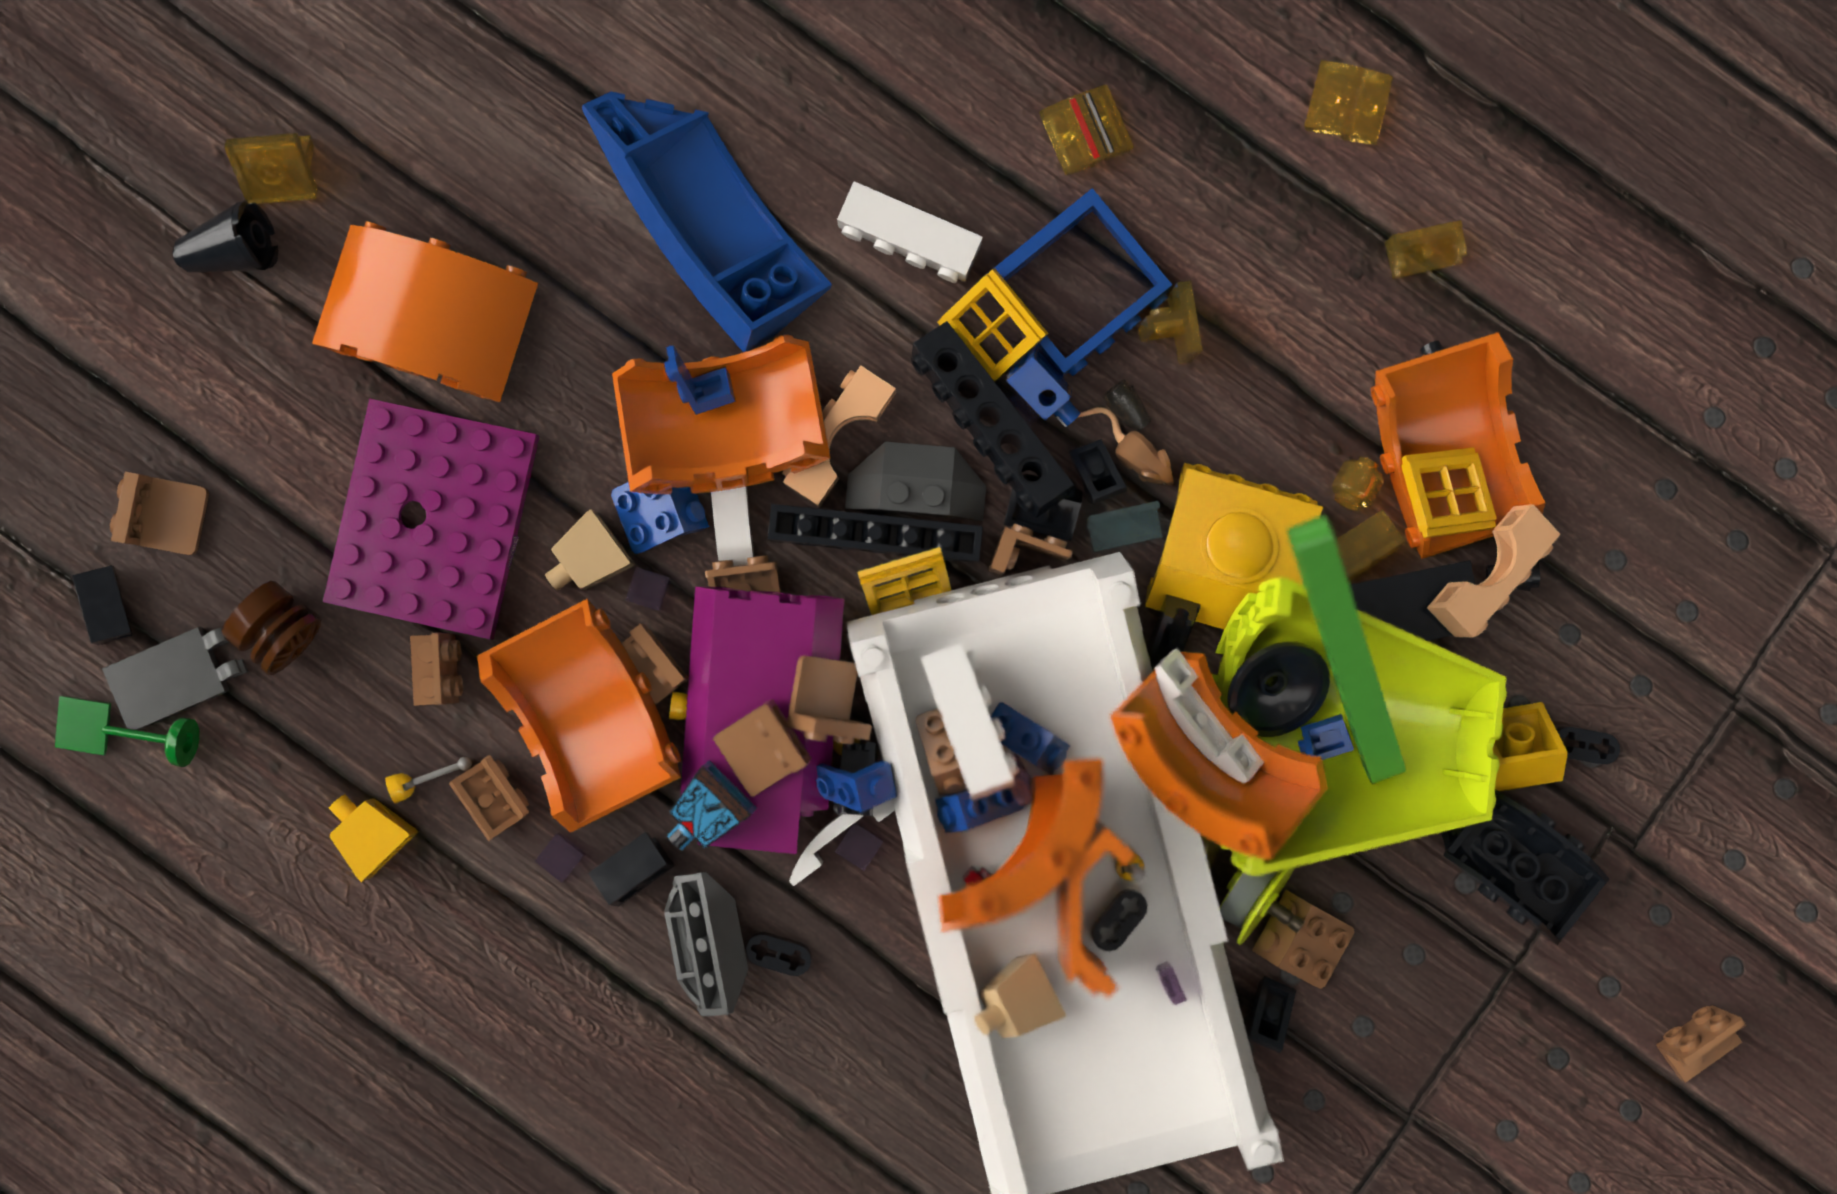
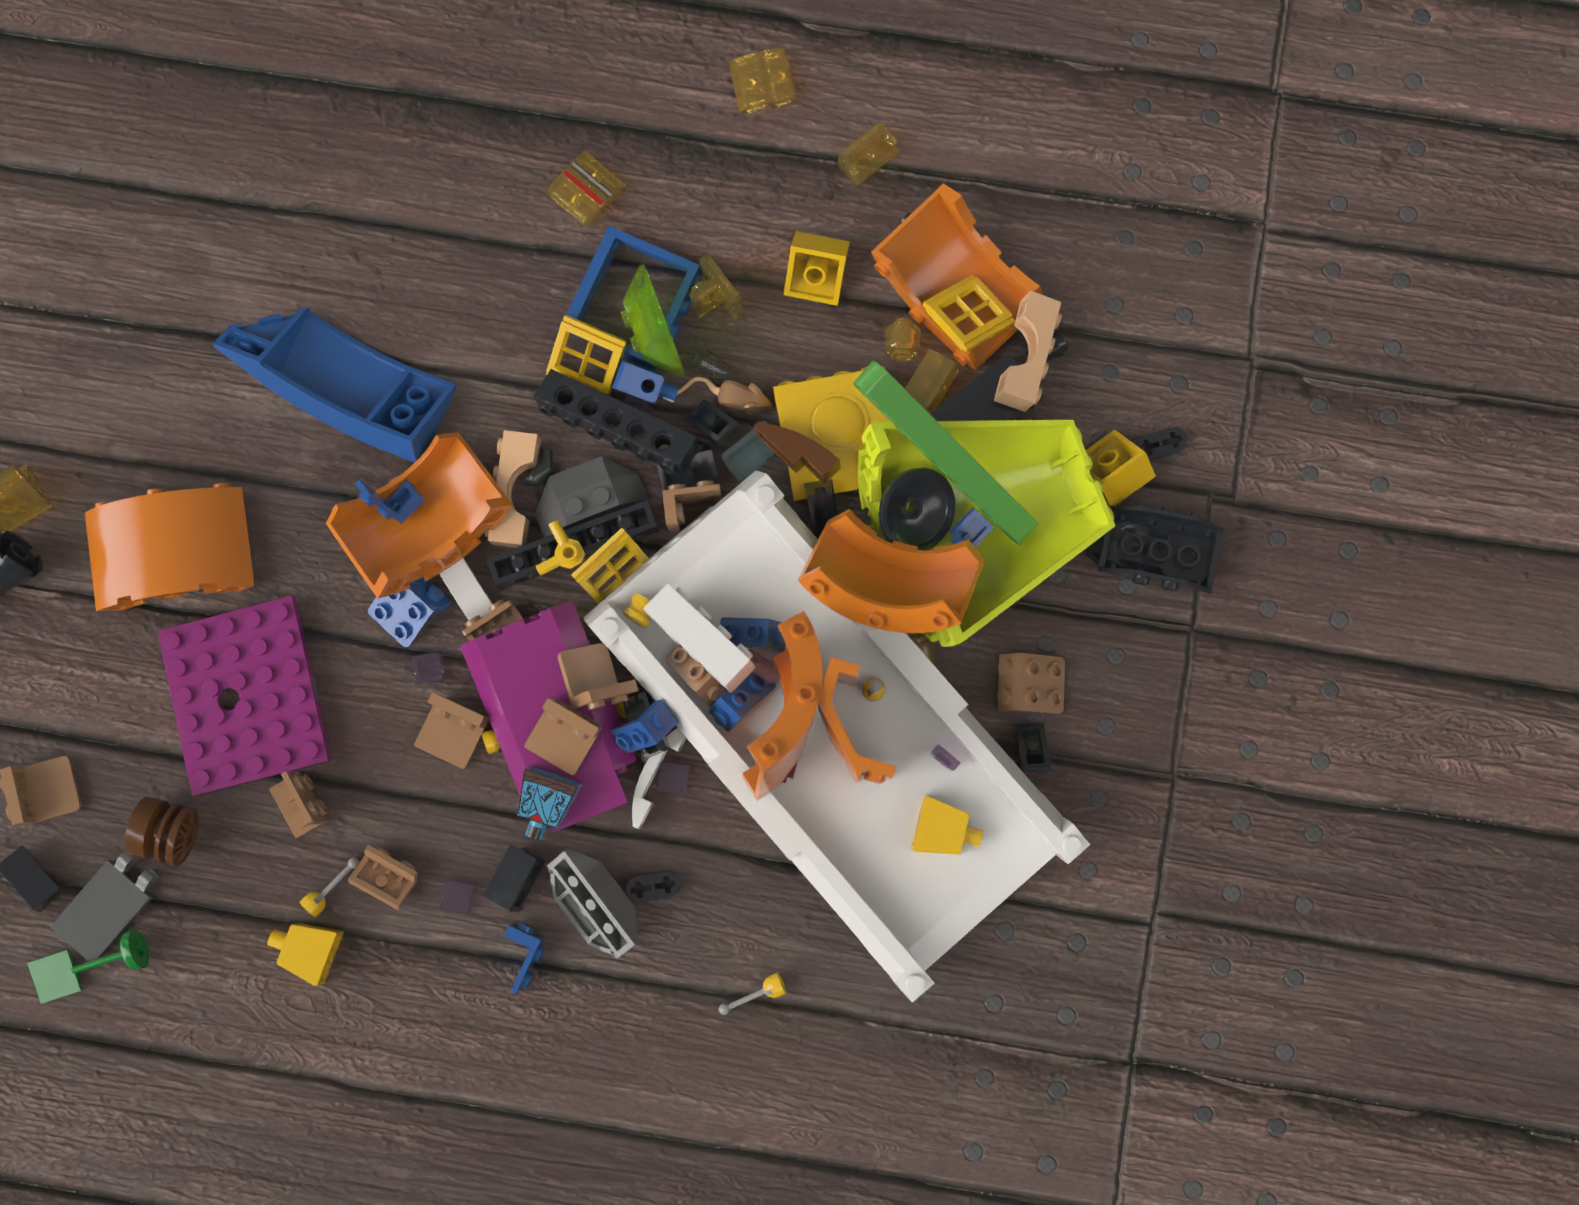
camera: 20 degrees left, 5 degrees down
(582, 714) = (421, 779): orange panel -> none
(588, 554) = (372, 664): tan torso -> none
(613, 939) = (524, 935): none -> blue bracket
(855, 1127) = (772, 987): none -> hinge
(865, 545) = (567, 553): none -> yellow piece
(879, 431) = (541, 472): none -> pearl dark grey arm
(908, 231) = (493, 320): white brick -> none
(913, 649) = (636, 612): none -> yellow wheel
(1018, 1000) = (840, 824): tan torso -> none
(1083, 328) = (649, 325): none -> clear neon green wedge
(1125, 926) = (892, 733): black beam -> none
(1128, 1061) = (943, 829): none -> yellow torso
(1181, 559) = (798, 451): none -> reddish brown slope
(1199, 723) = (870, 560): white slope -> none
(1255, 896) = (977, 665): piece -> none
(1302, 352) = (816, 268): none -> yellow slope
(1700, 1041) = (1352, 614): medium nougat bracket -> none

